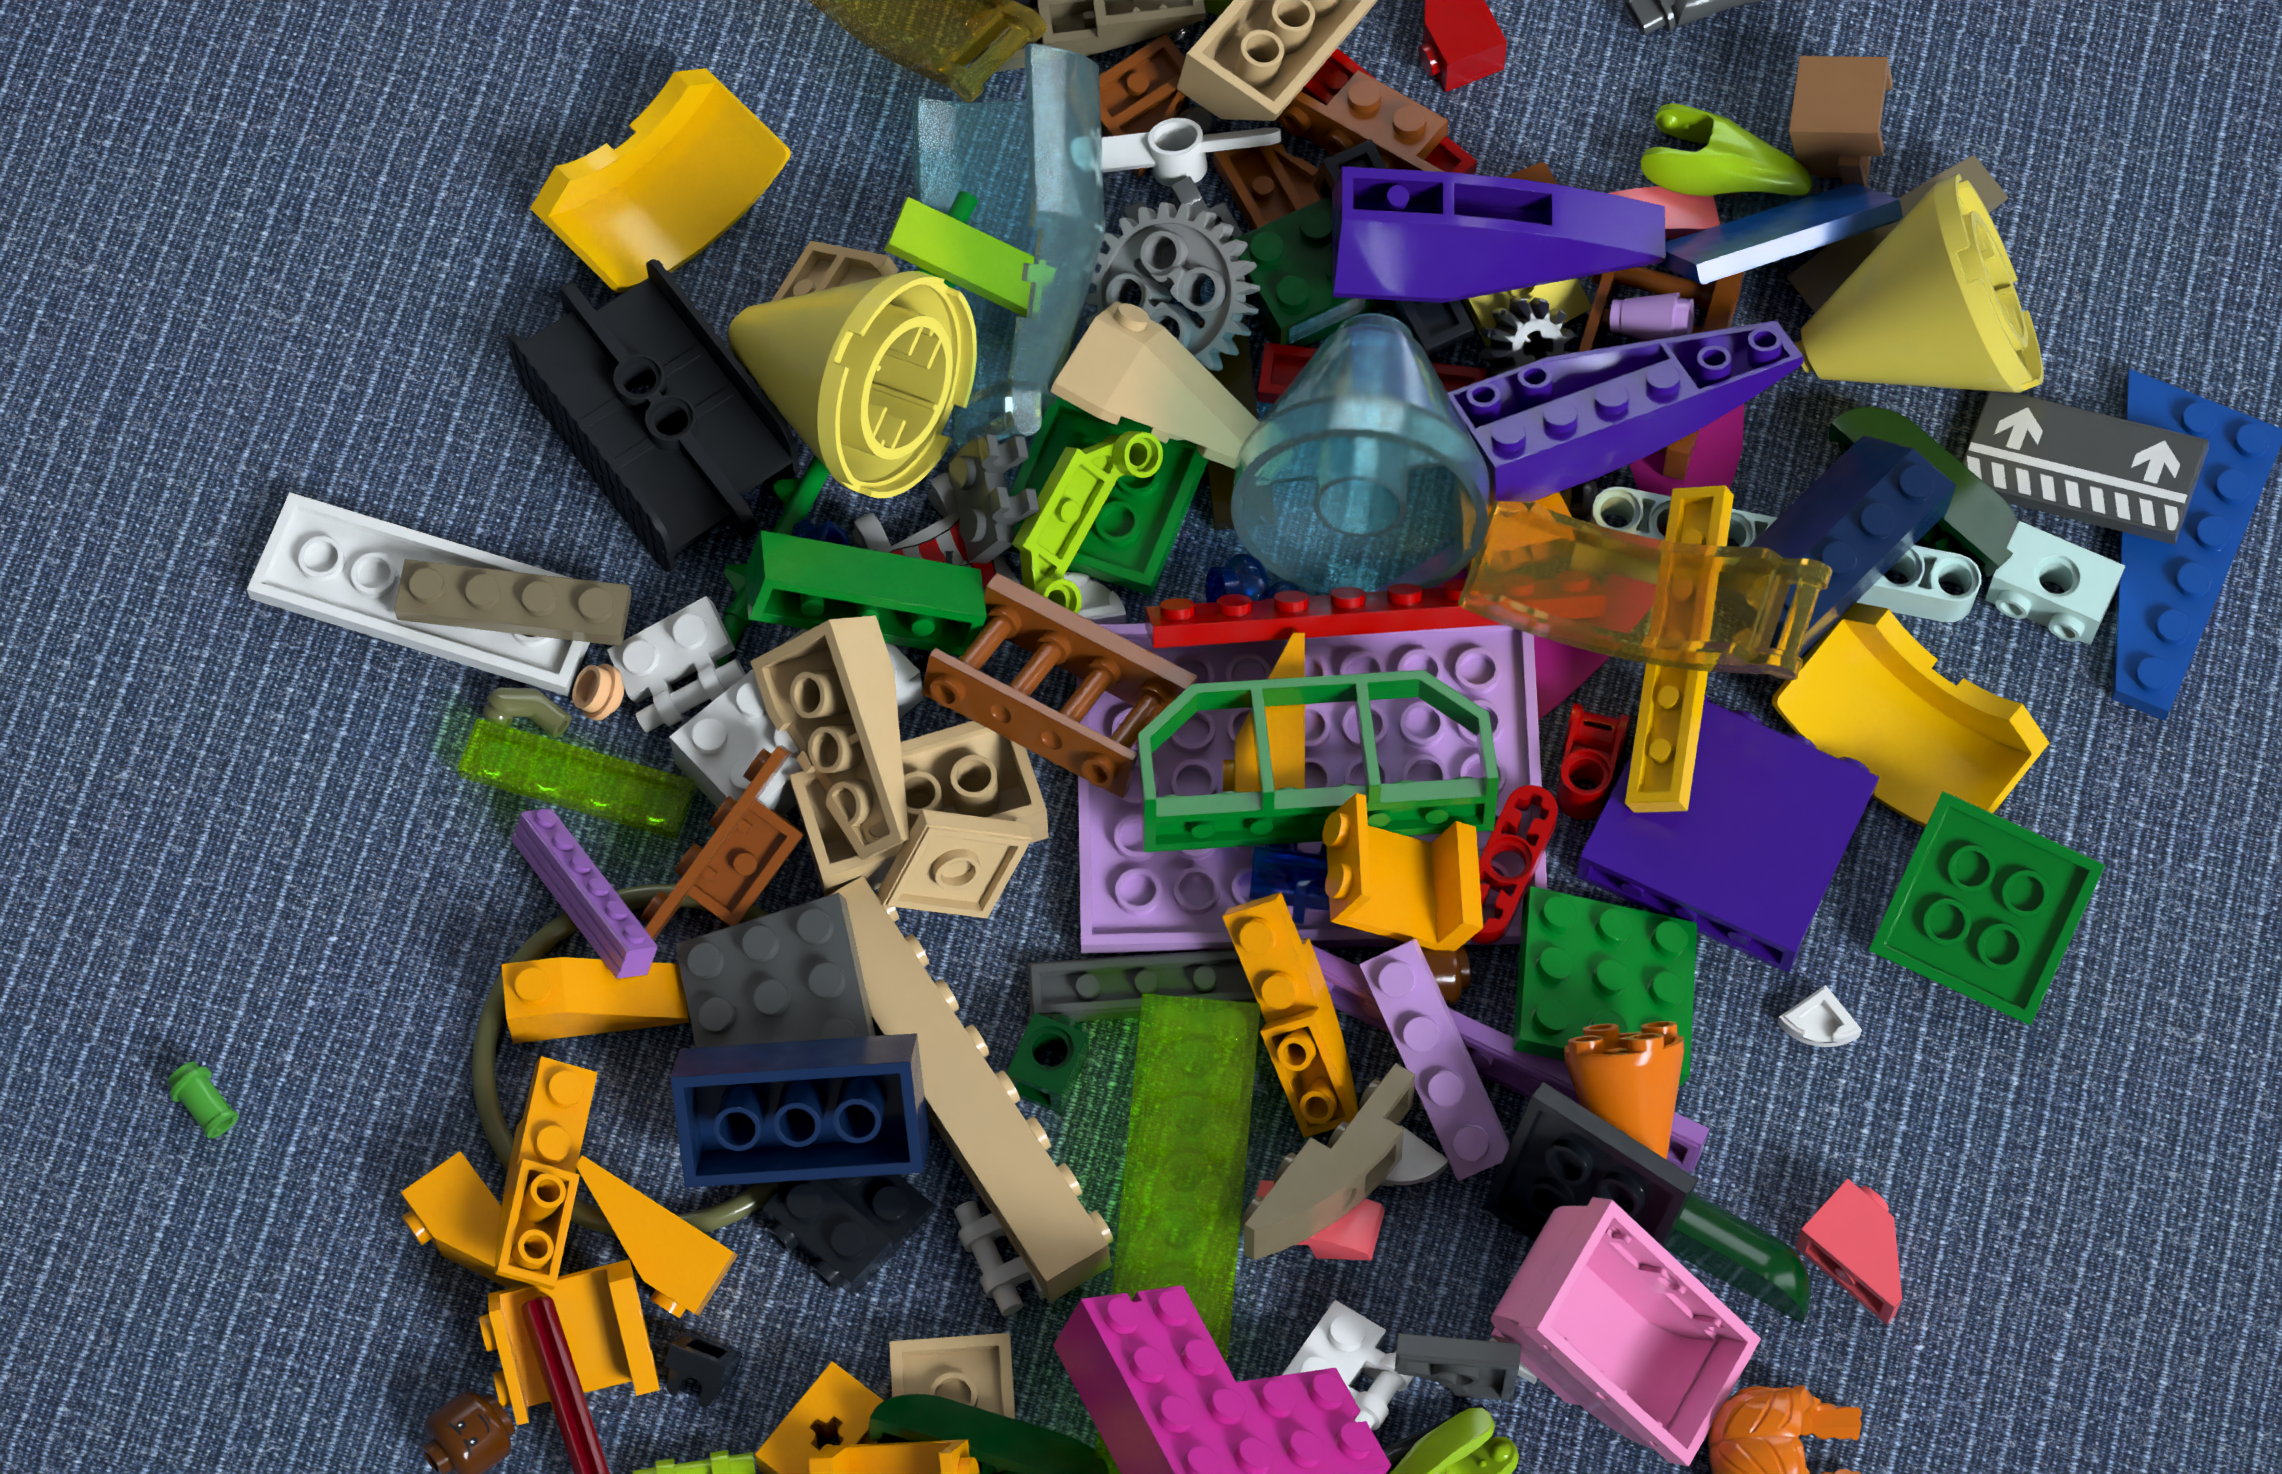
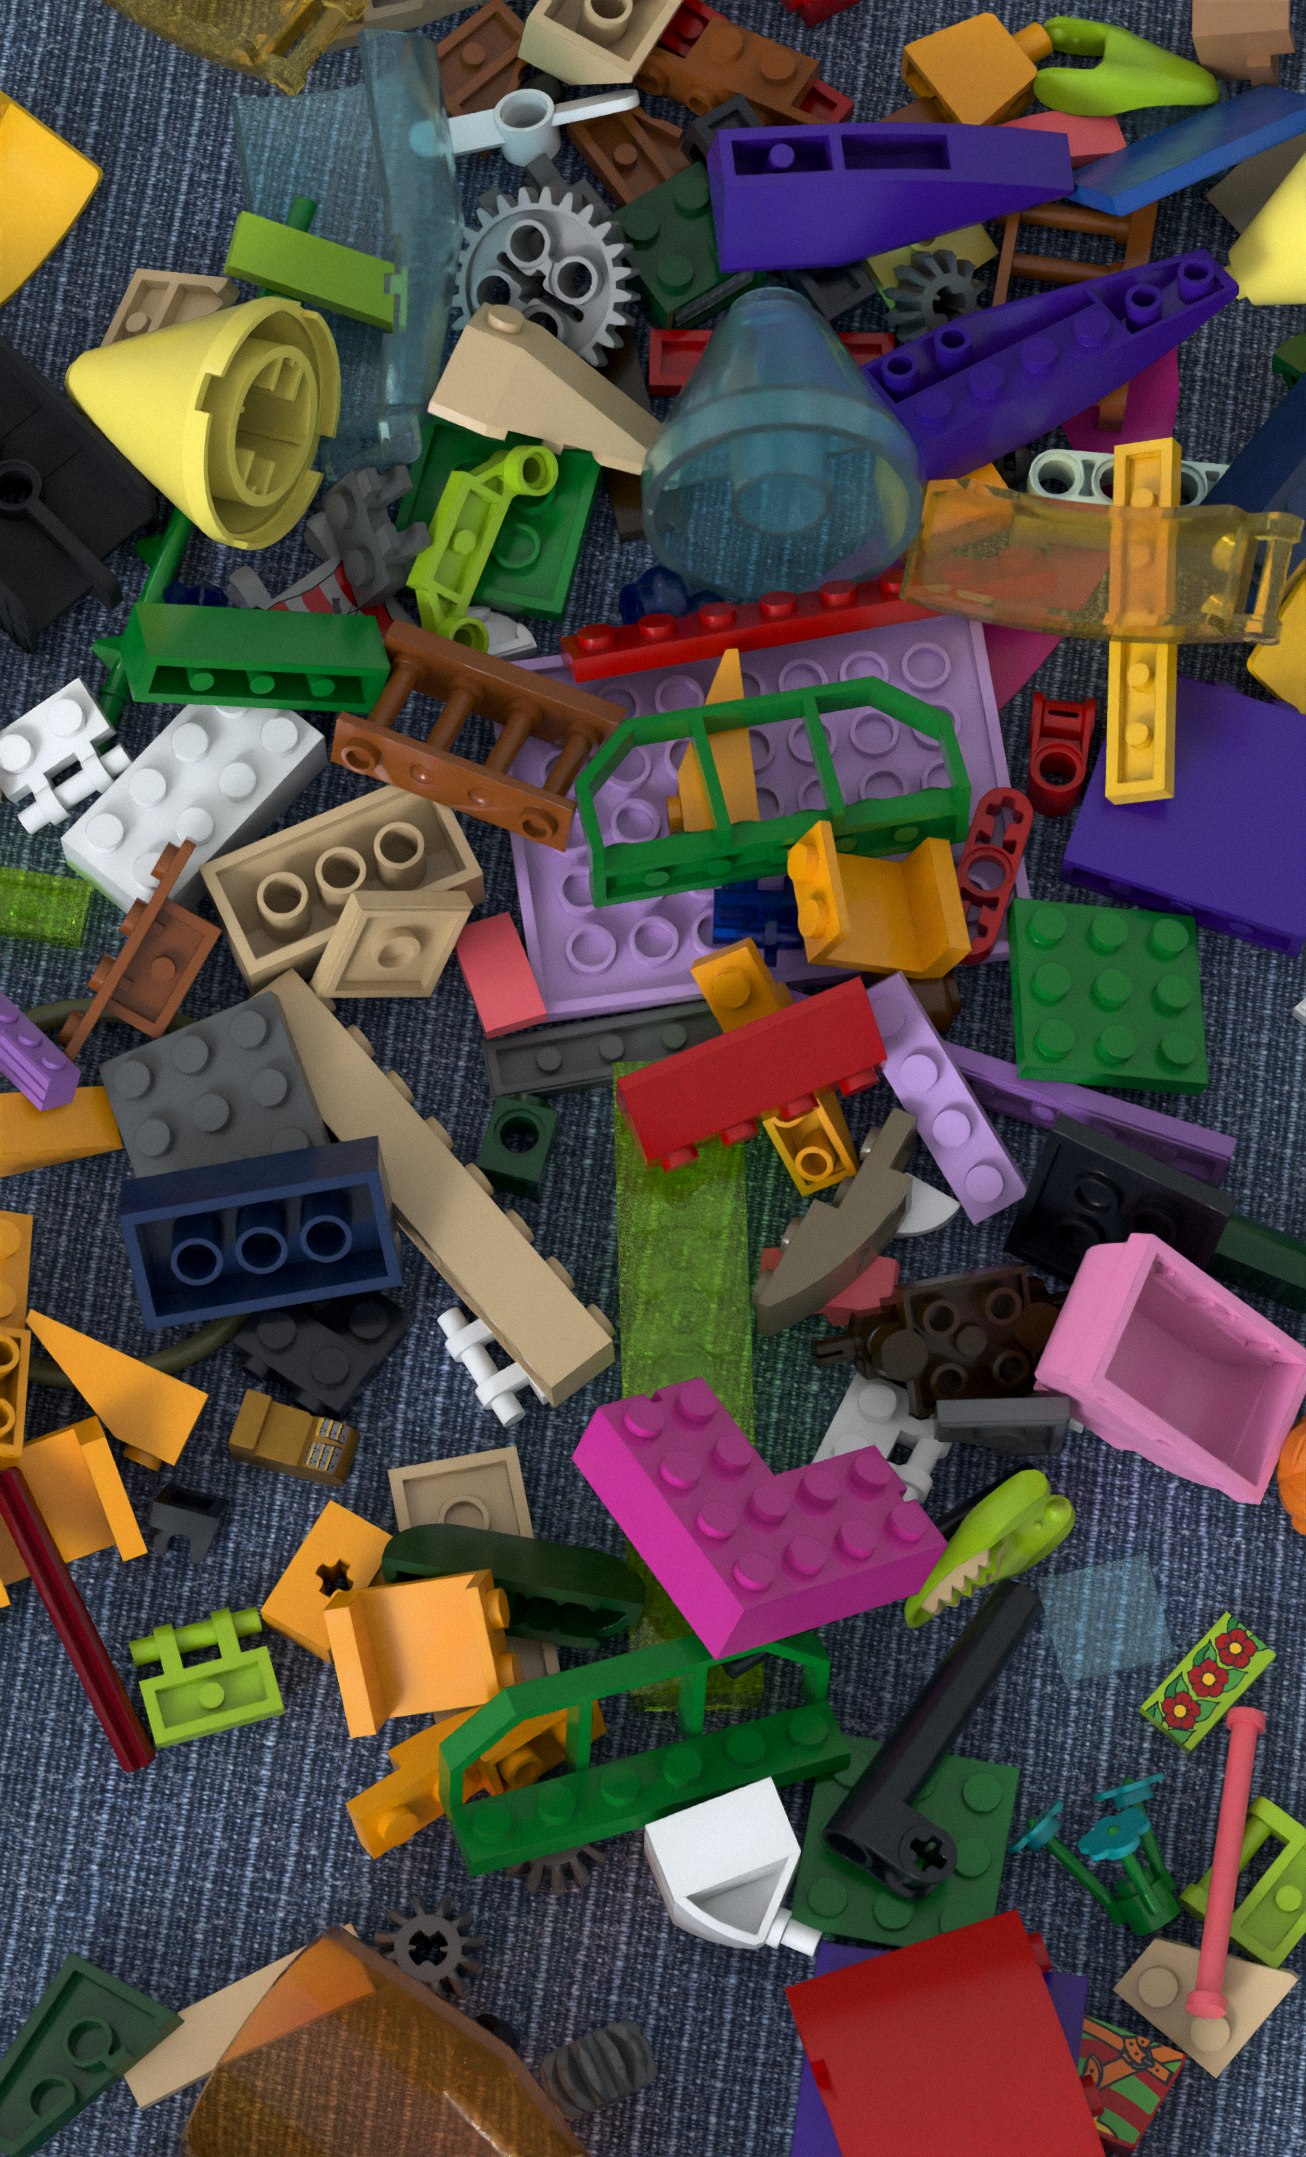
camera: 10 degrees left, 5 degrees up
(806, 1305) = (292, 1441): none -> pearl gold leg
(841, 710) = (249, 795): tan wedge -> none
(1051, 905) = (499, 976): none -> coral slope
(1265, 1017) = (752, 1076): none -> red slope
(1421, 1277) = (952, 1336): none -> dark brown piece
(1592, 142) = (977, 69): none -> light orange torso
(1629, 1078) = (1149, 1096): orange cone -> none
(1652, 316) = (1069, 257): lavender cone -> none

